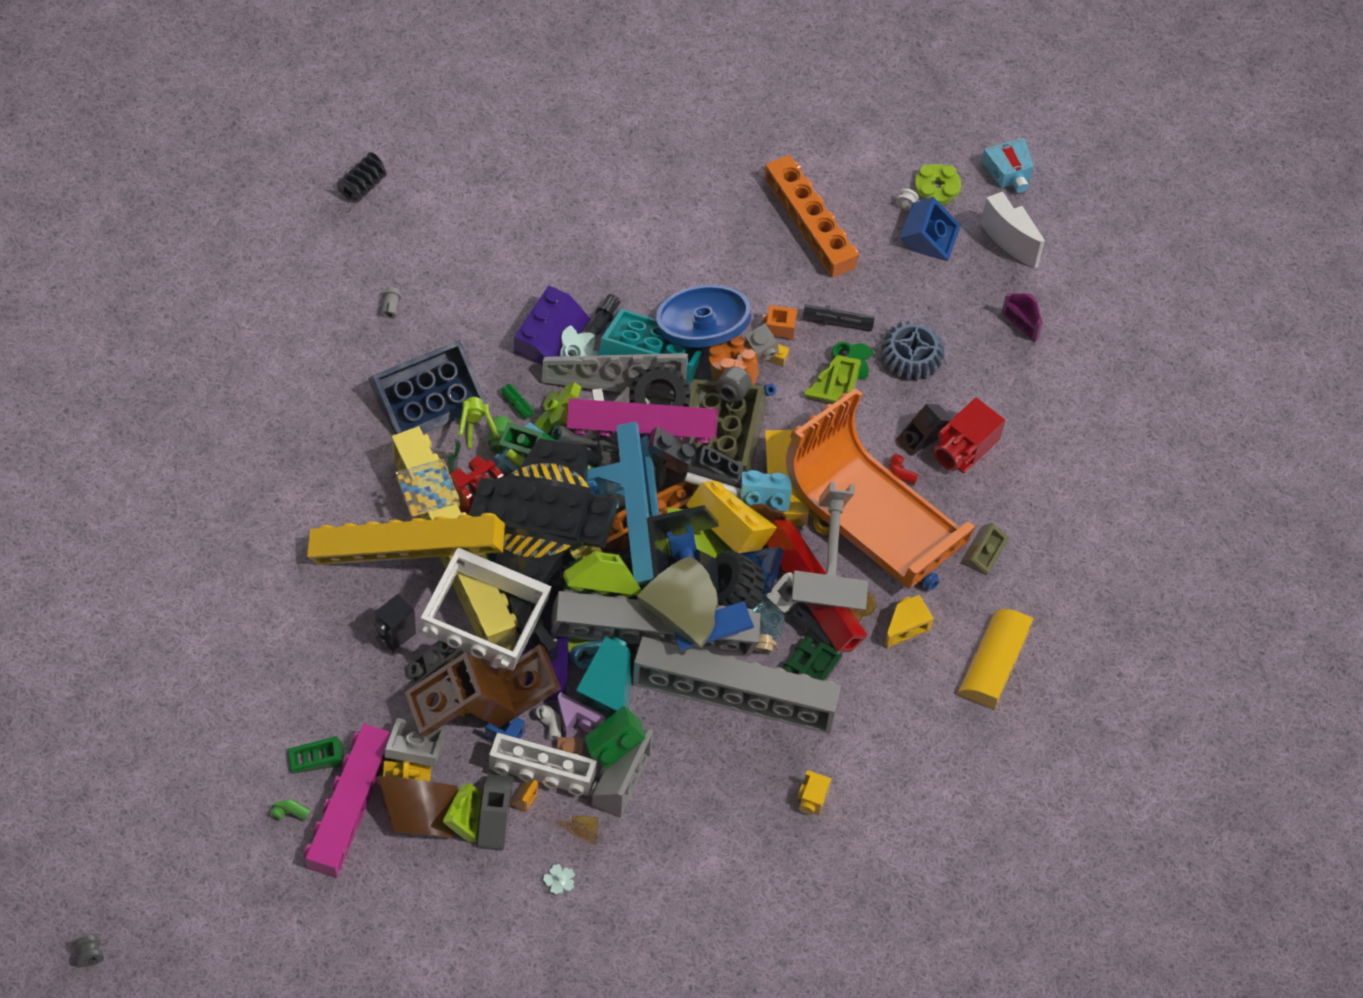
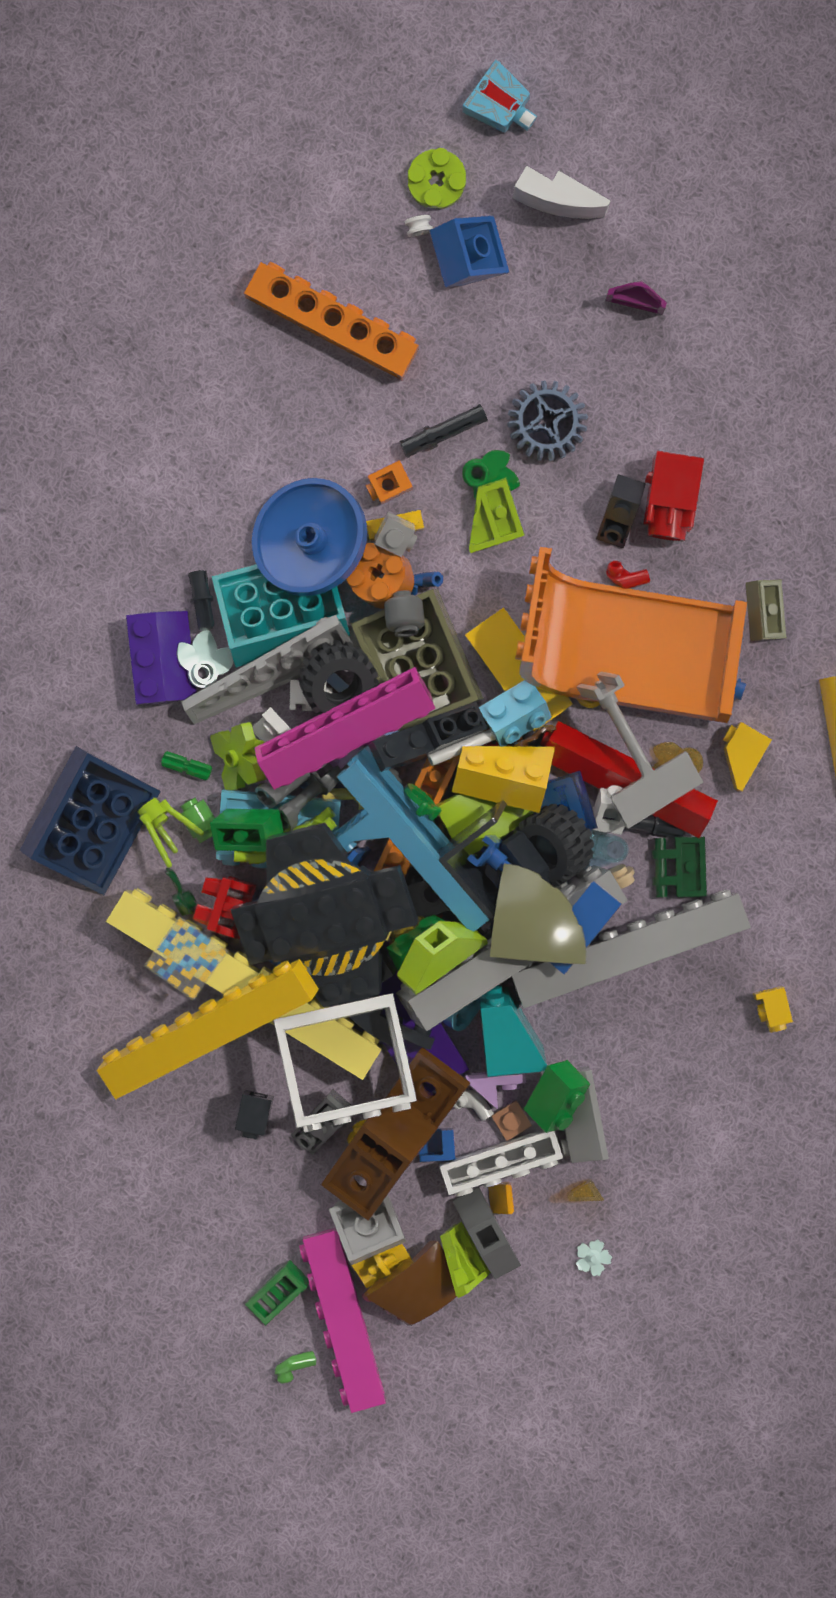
camera: 30 degrees left, 30 degrees up
(660, 495) = (425, 803): none -> green piece

